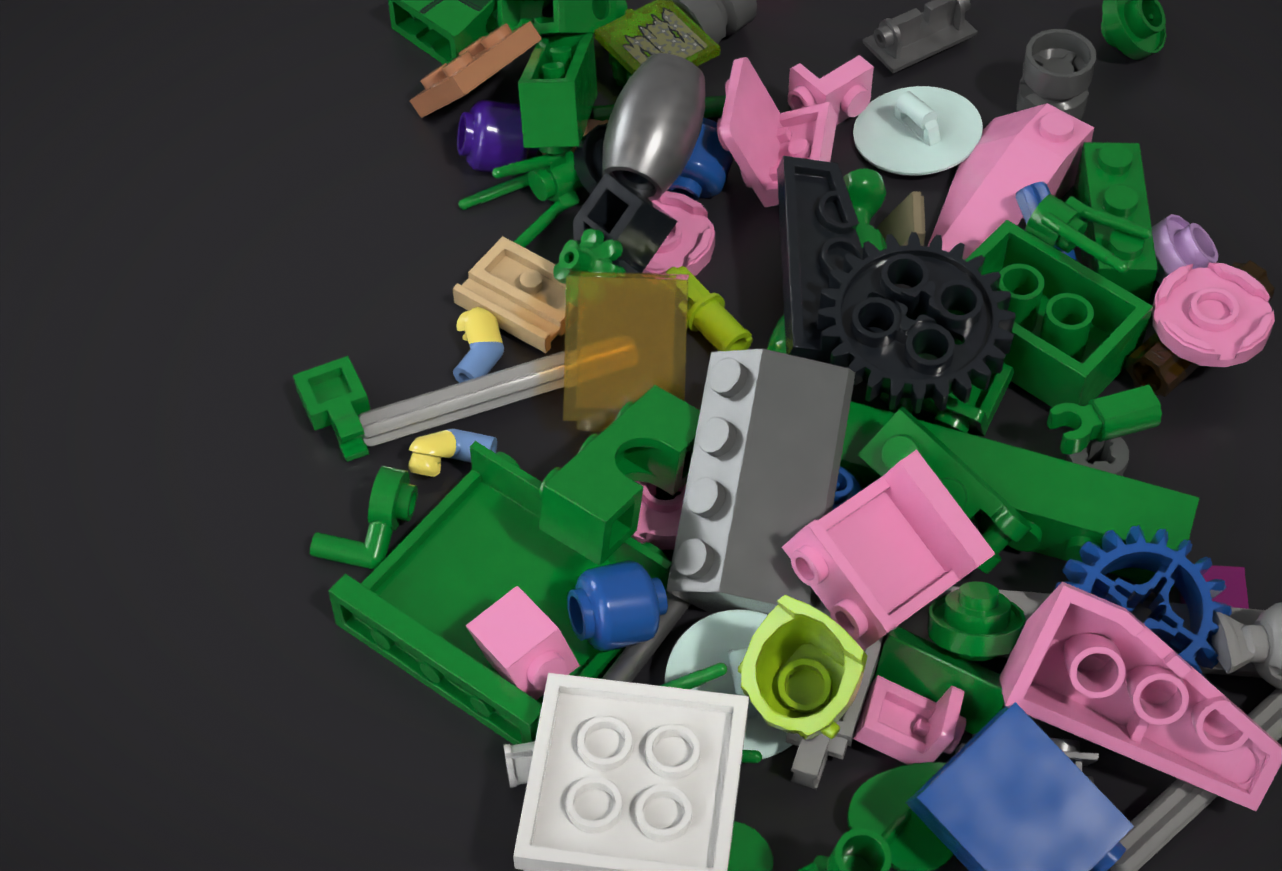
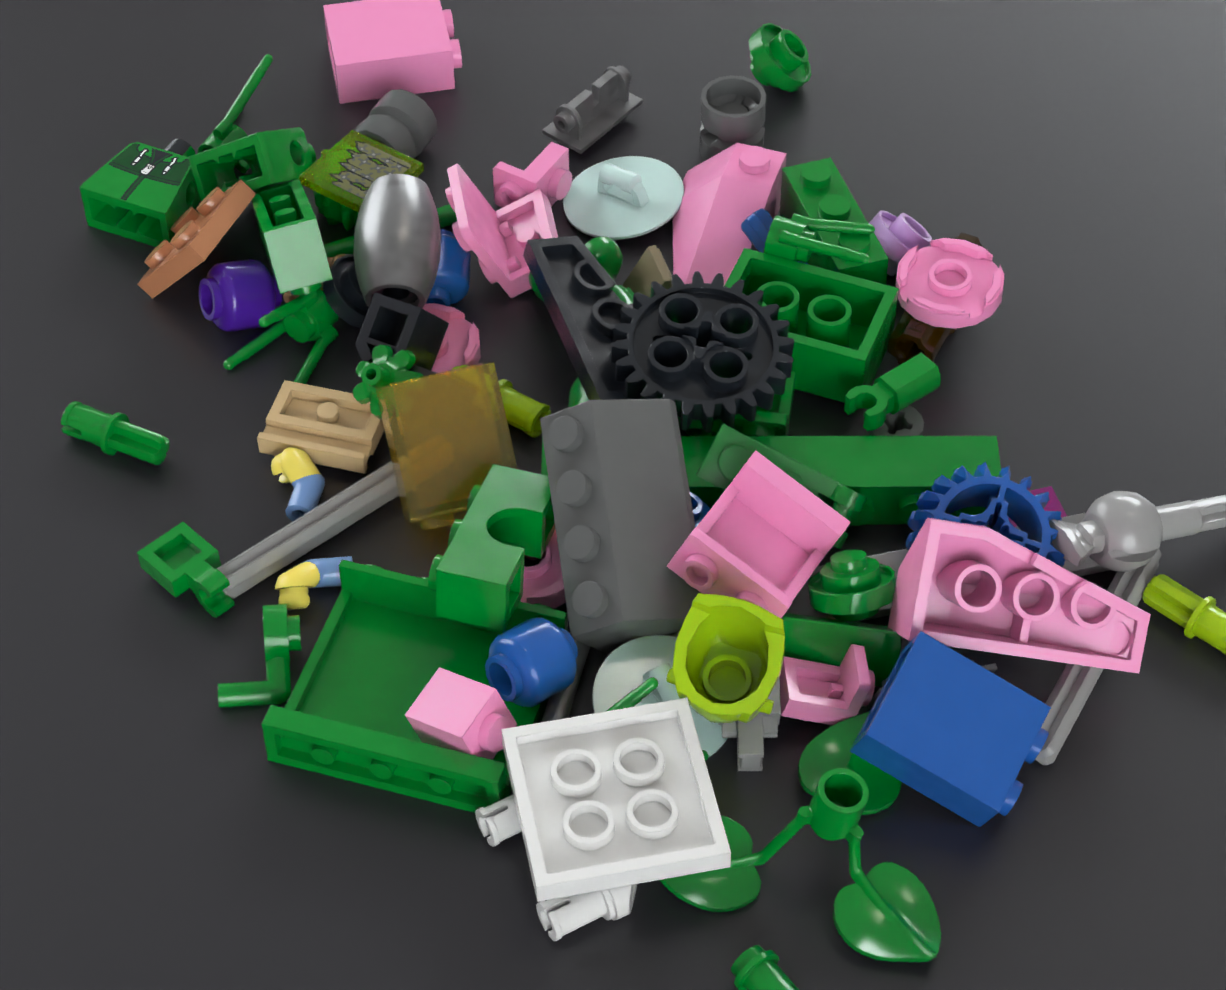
camera: 20 degrees left, 5 degrees down
(325, 246) = (113, 433): none -> green axle

